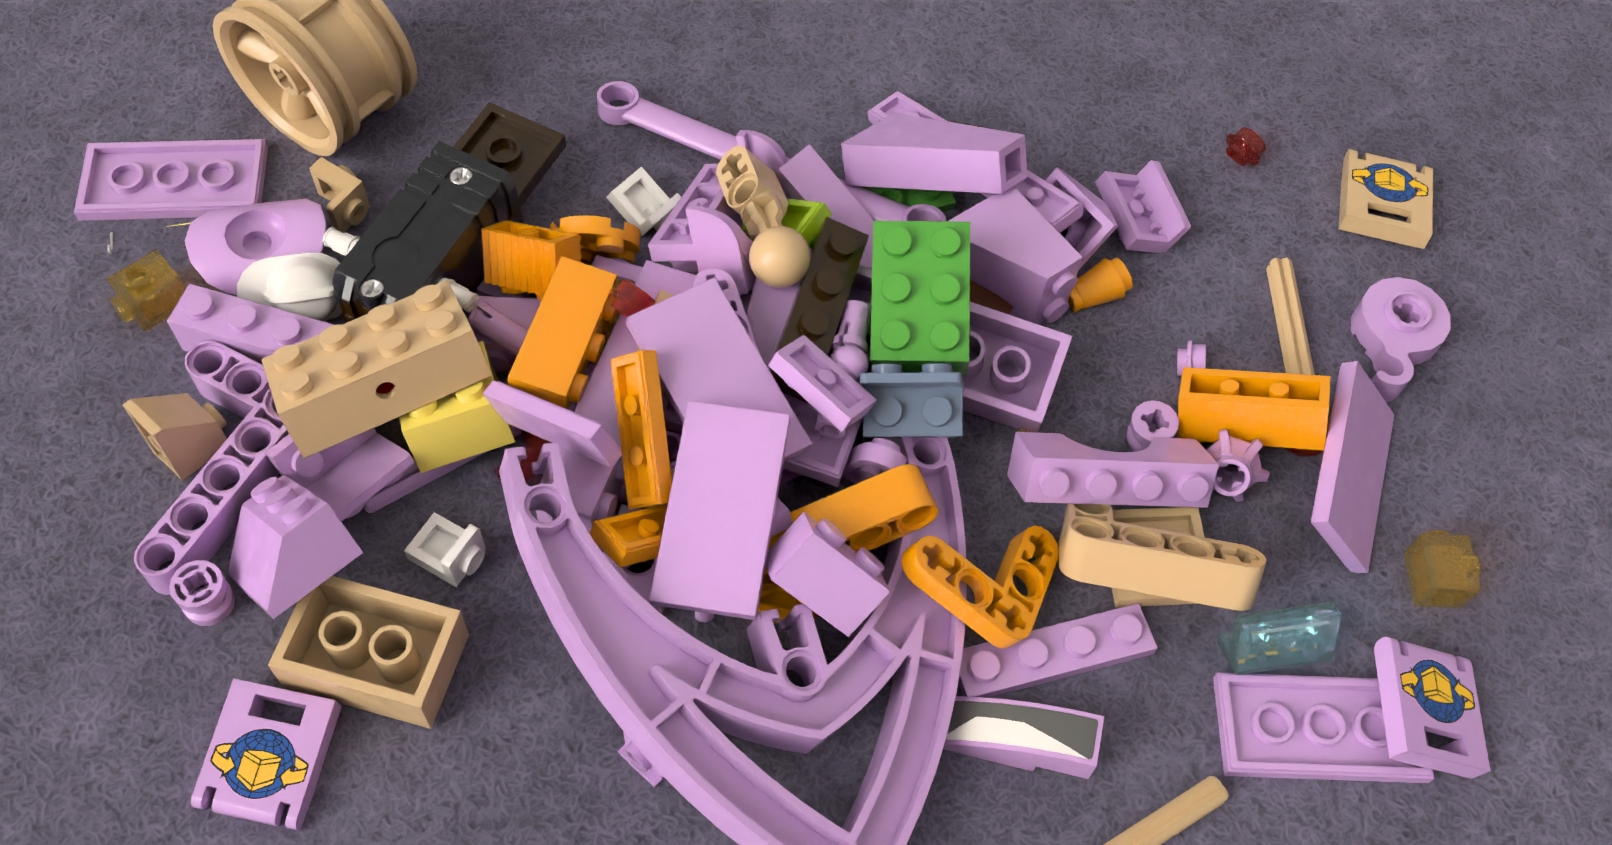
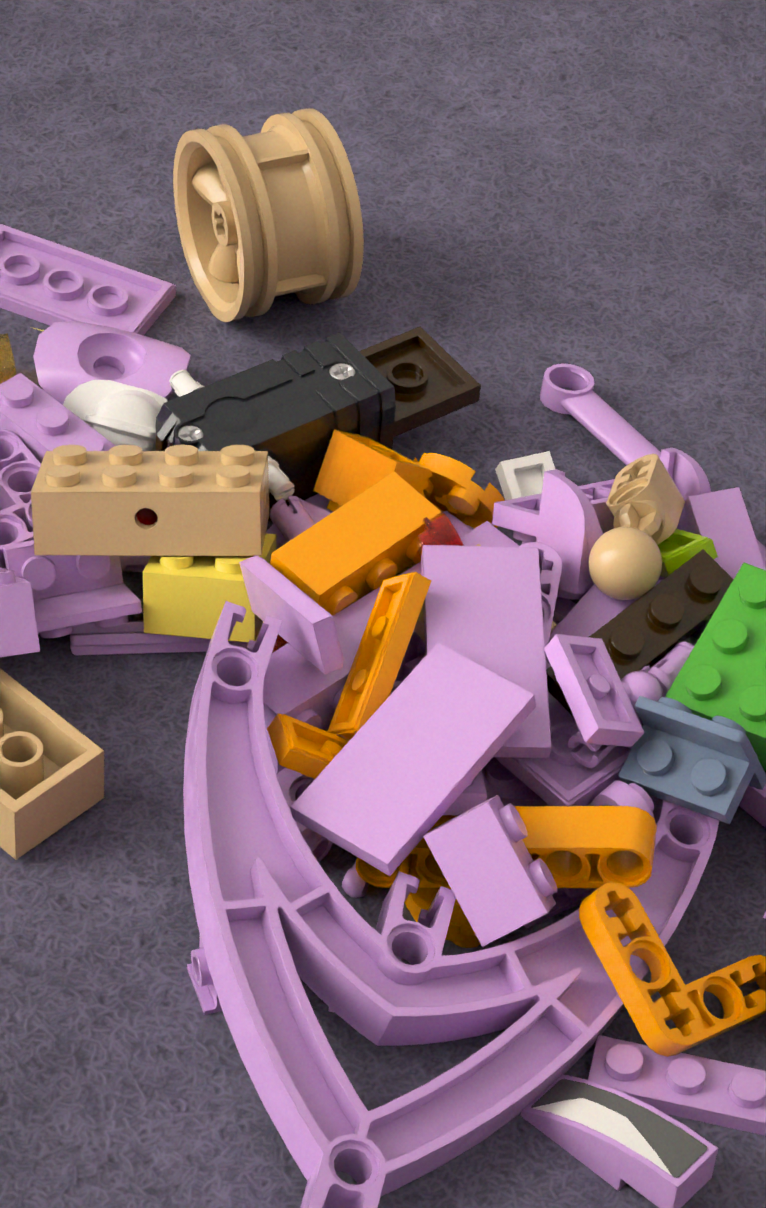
camera: 30 degrees right, 15 degrees down
(344, 191) = (220, 352): tan bracket -> none
(447, 549) = (128, 711): white bracket -> none

